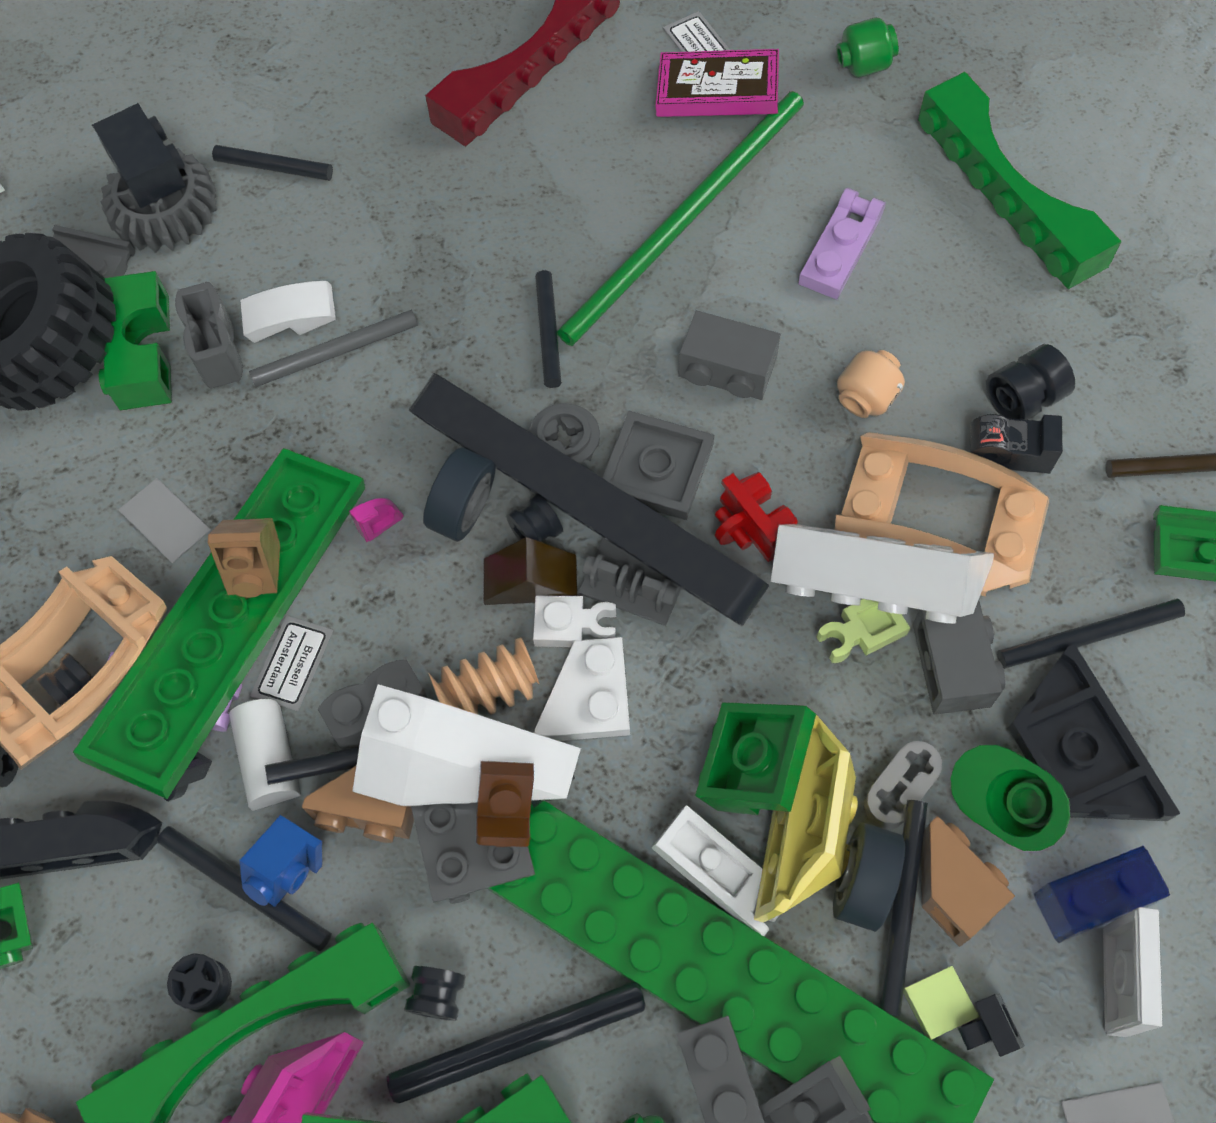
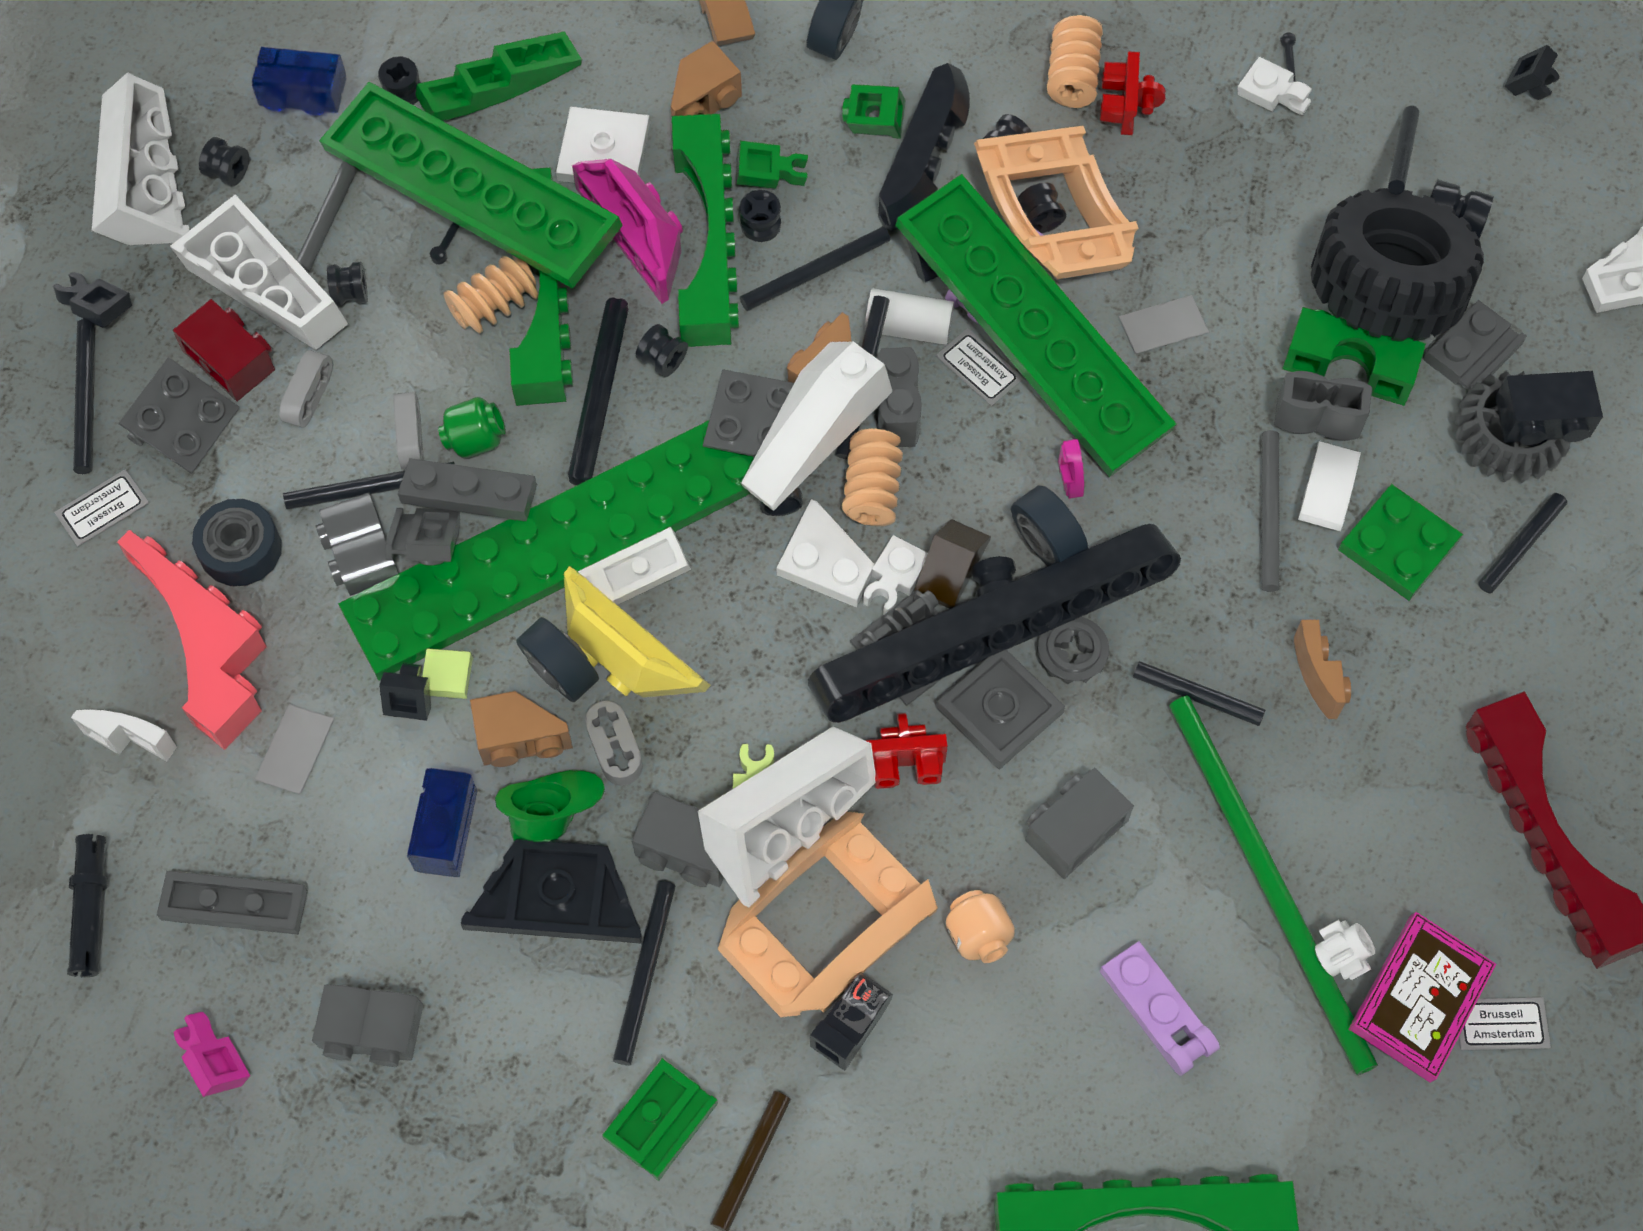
camera: 115 degrees right, 0 degrees up
(127, 1019) = (763, 166): none -> green plate
(246, 555) = (1064, 335): medium nougat slope -> none
(279, 862) = (813, 287): blue brick -> none
(316, 243) = (1400, 542): none -> green plate
(468, 256) = (1321, 676): none -> medium nougat slope
(504, 804) = (753, 430): reddish brown bracket -> none
(716, 136) = (1345, 949): none -> white gear
(755, 757) = (693, 626): green plate -> none
(867, 47) = (1395, 1175): green head -> none
(903, 910) = (526, 684): black bar -> none
(1031, 382) = (899, 1071): black wheel -> none
(1132, 973) = (373, 792): white plate -> none

